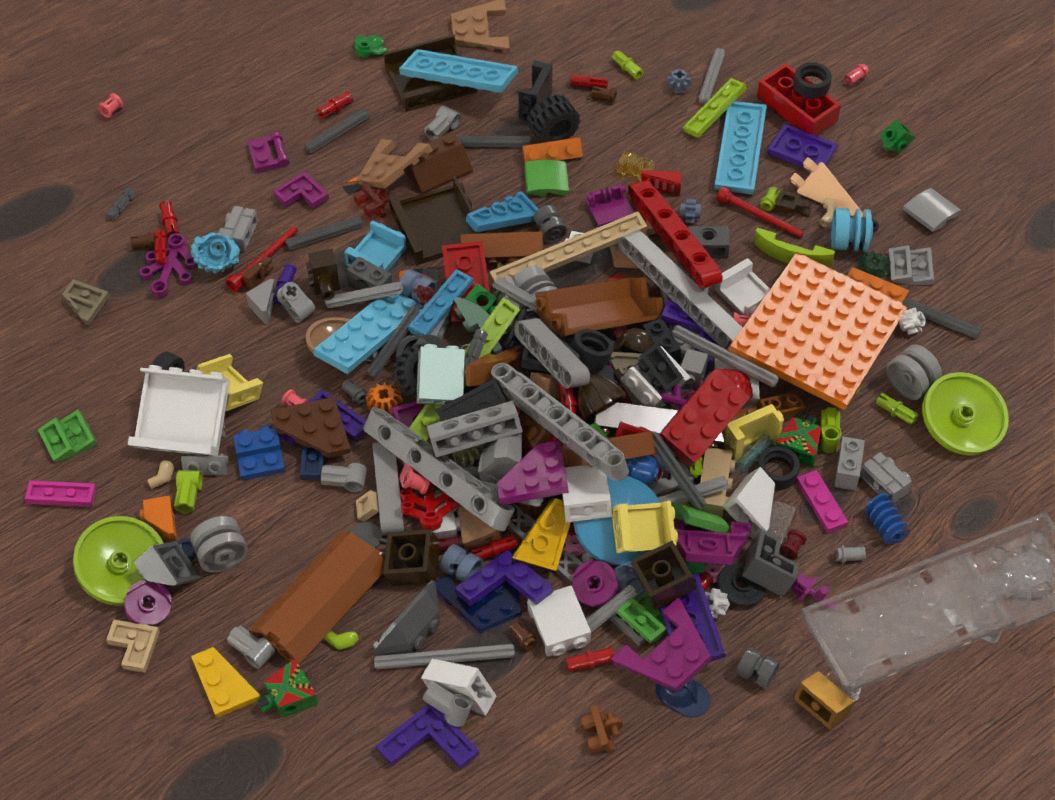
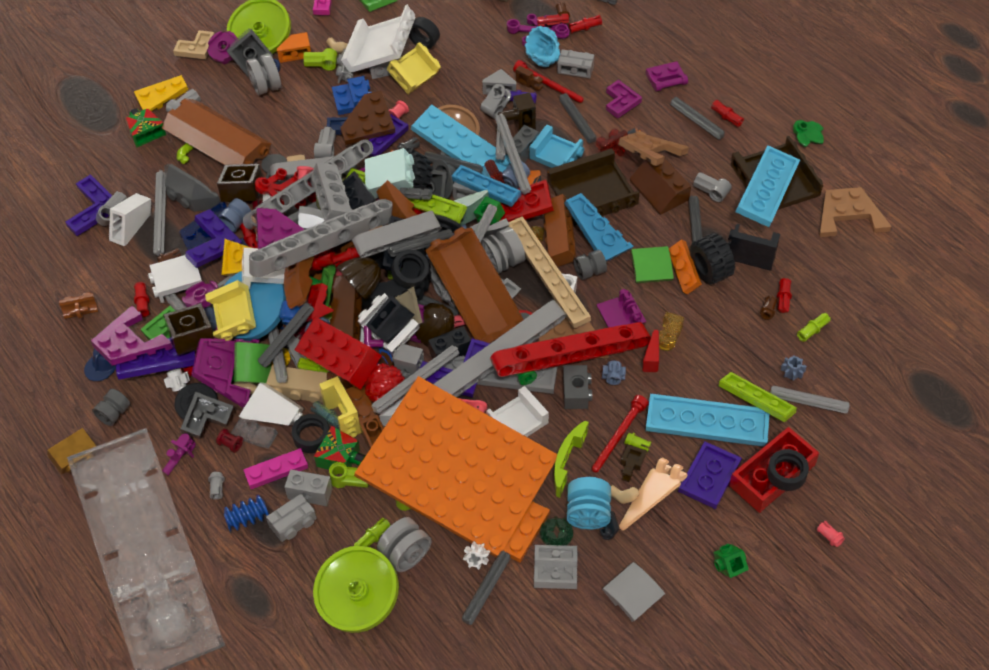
camera: 90 degrees right, 0 degrees up
(397, 275) = (513, 154): none -> light grey axle

